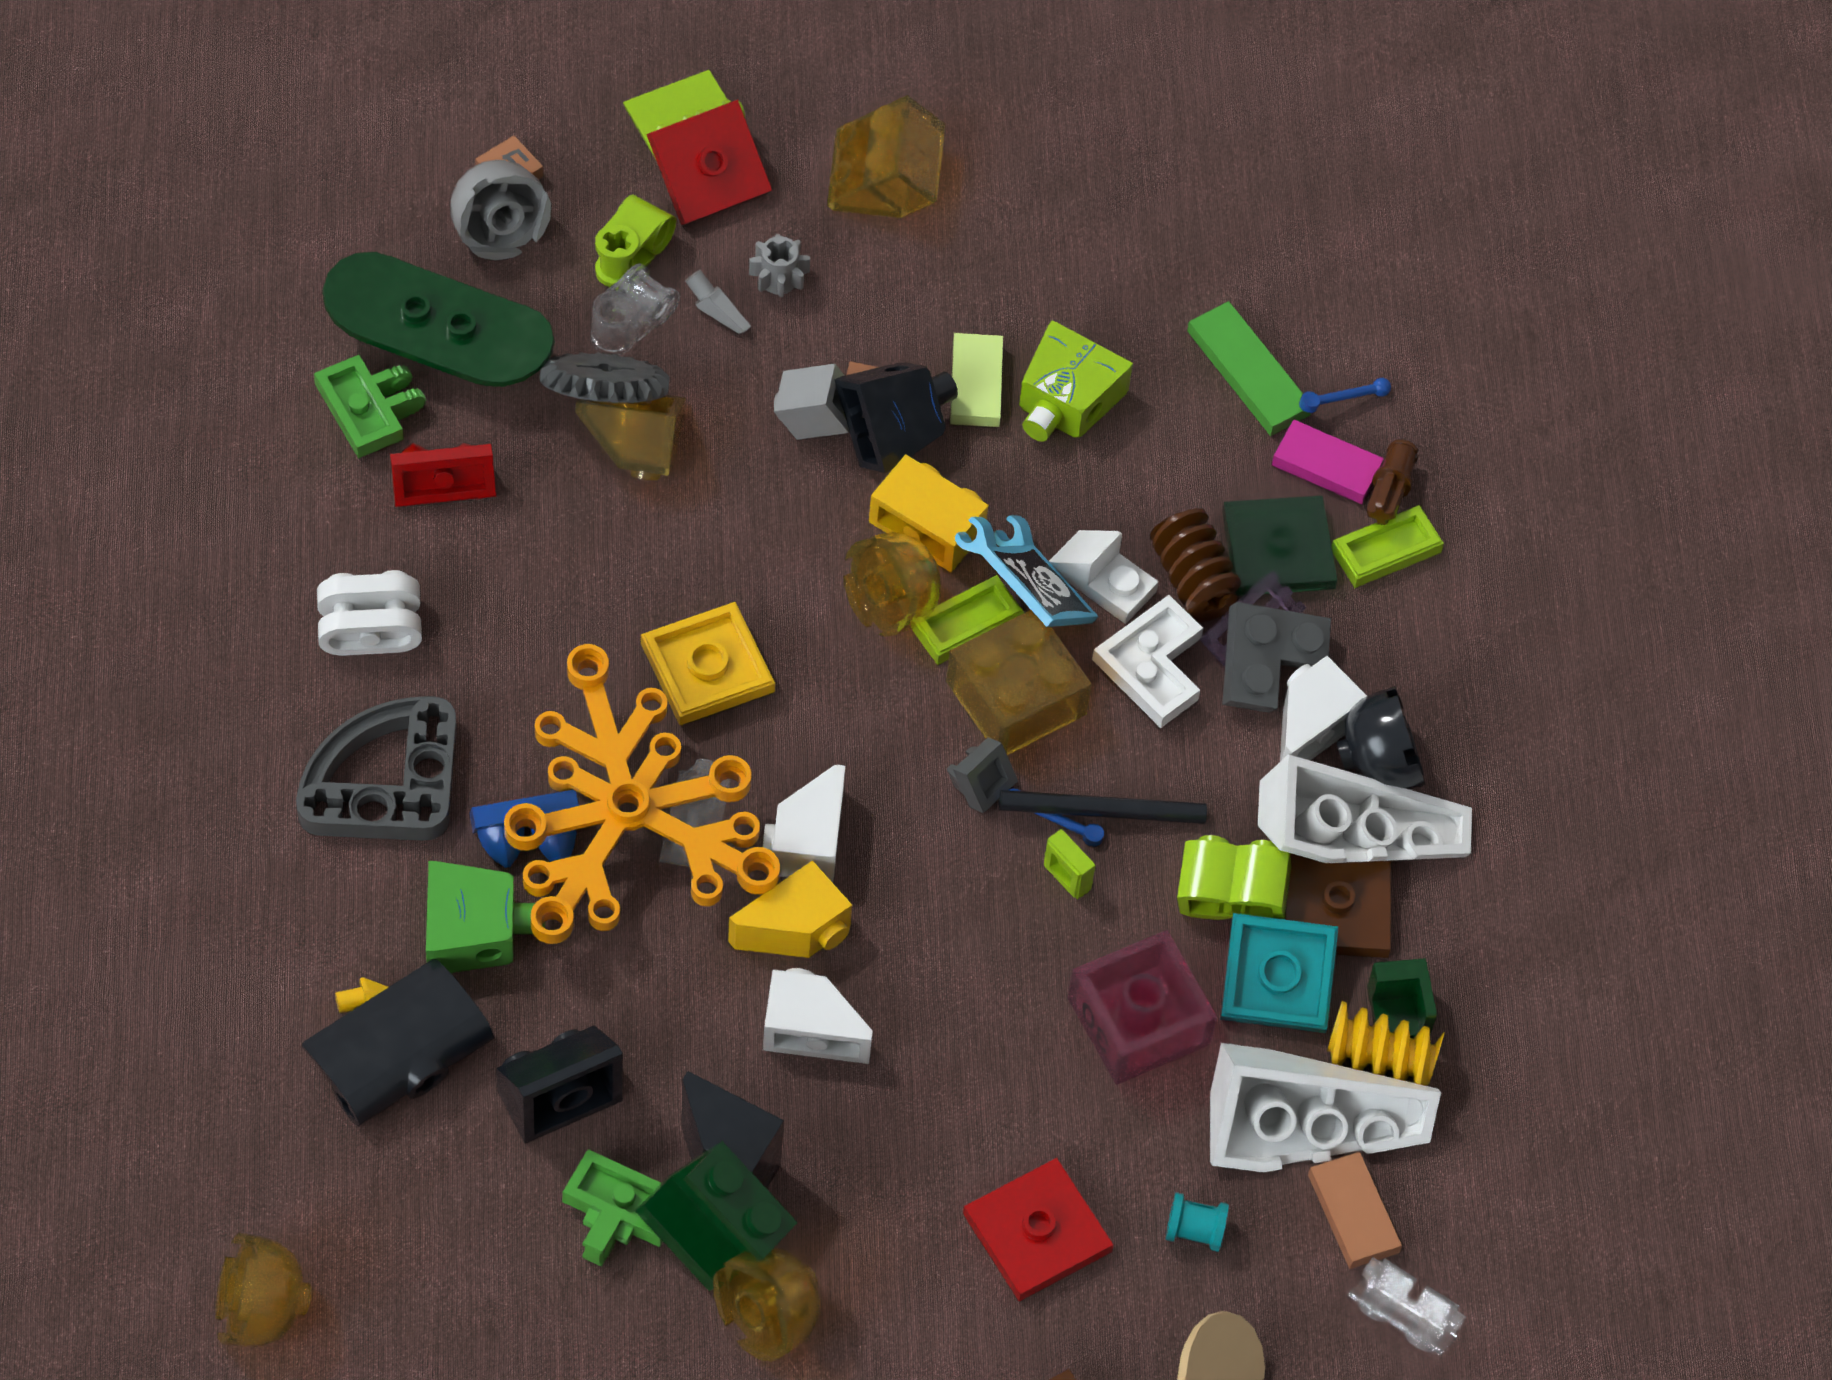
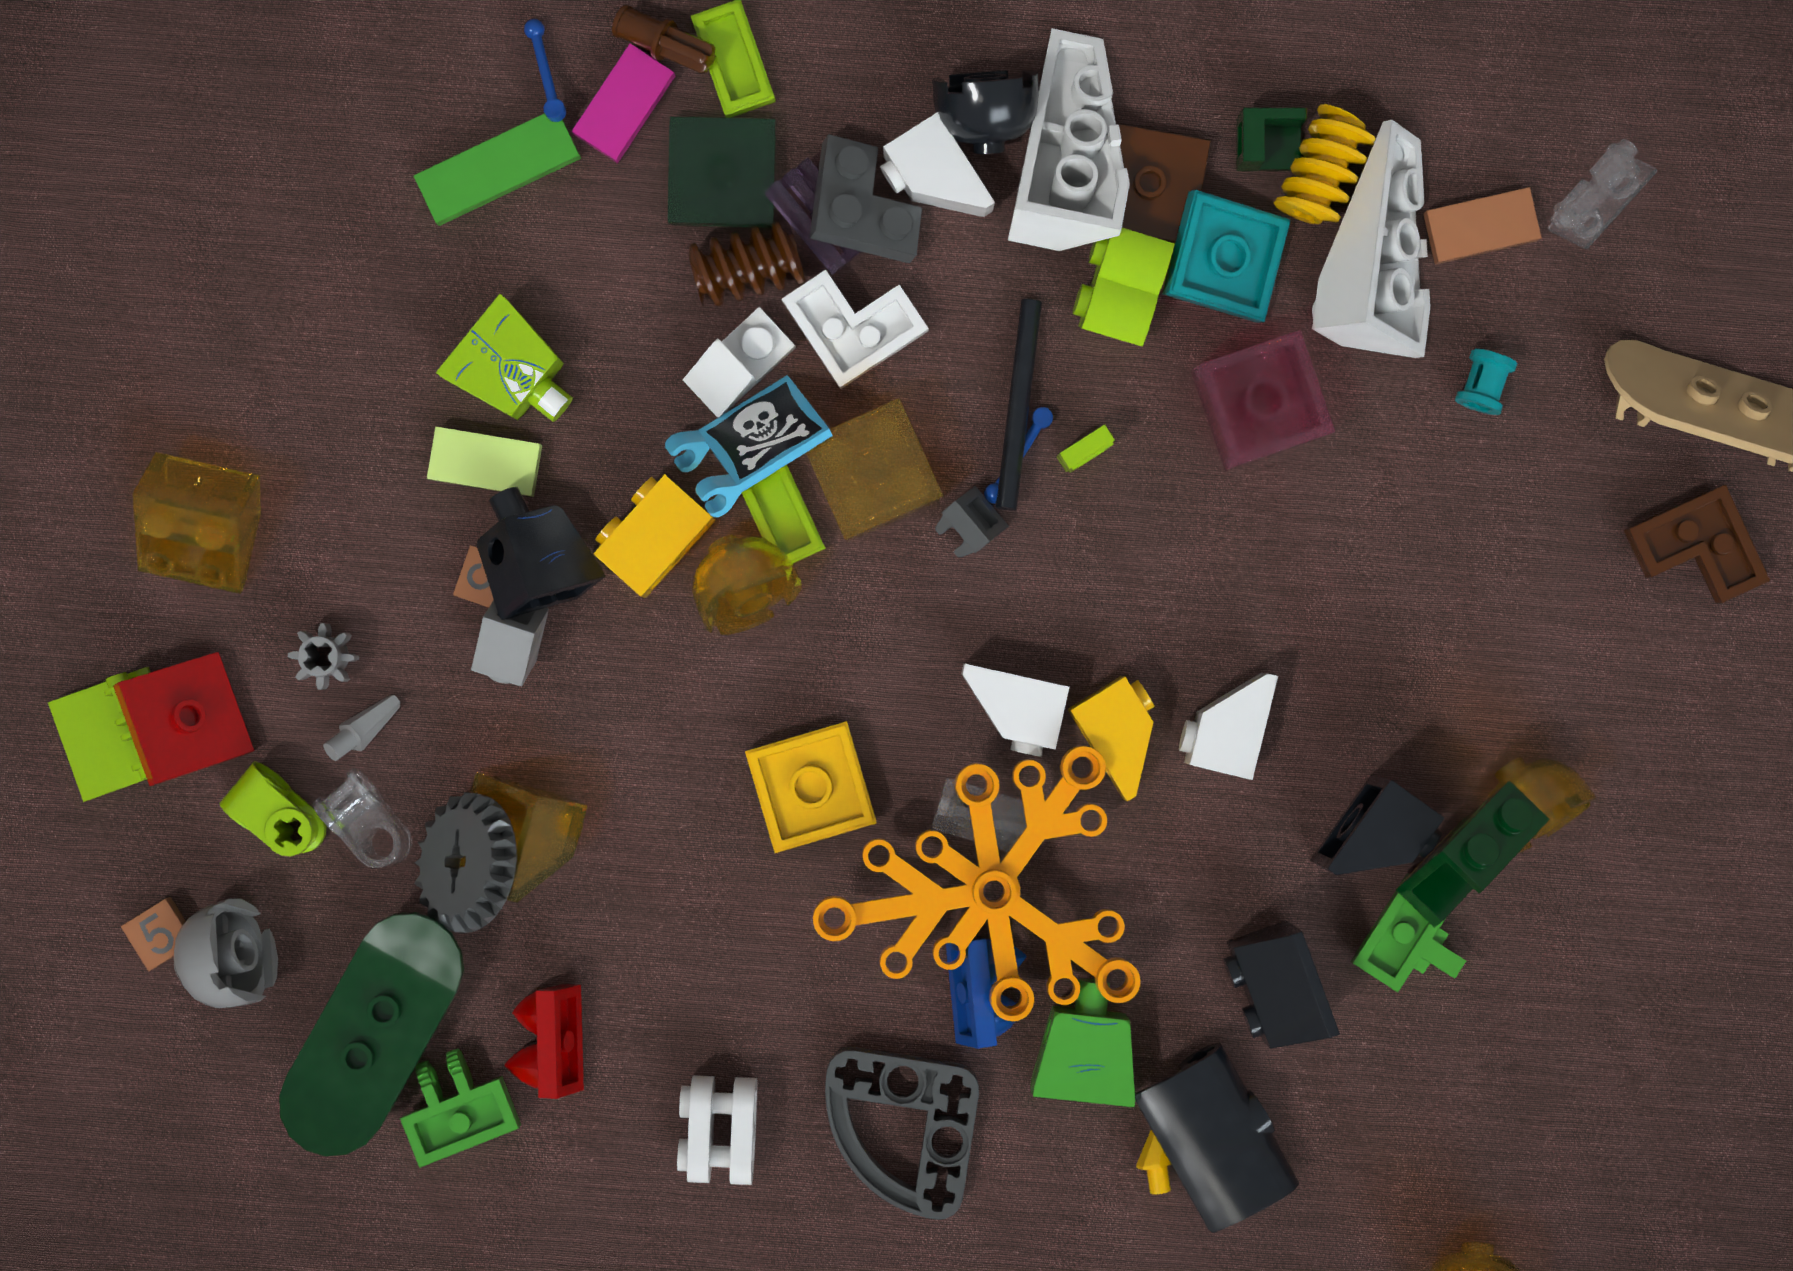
camera: 80 degrees left, 30 degrees up
(1037, 1229) = (1470, 536): red plate -> none

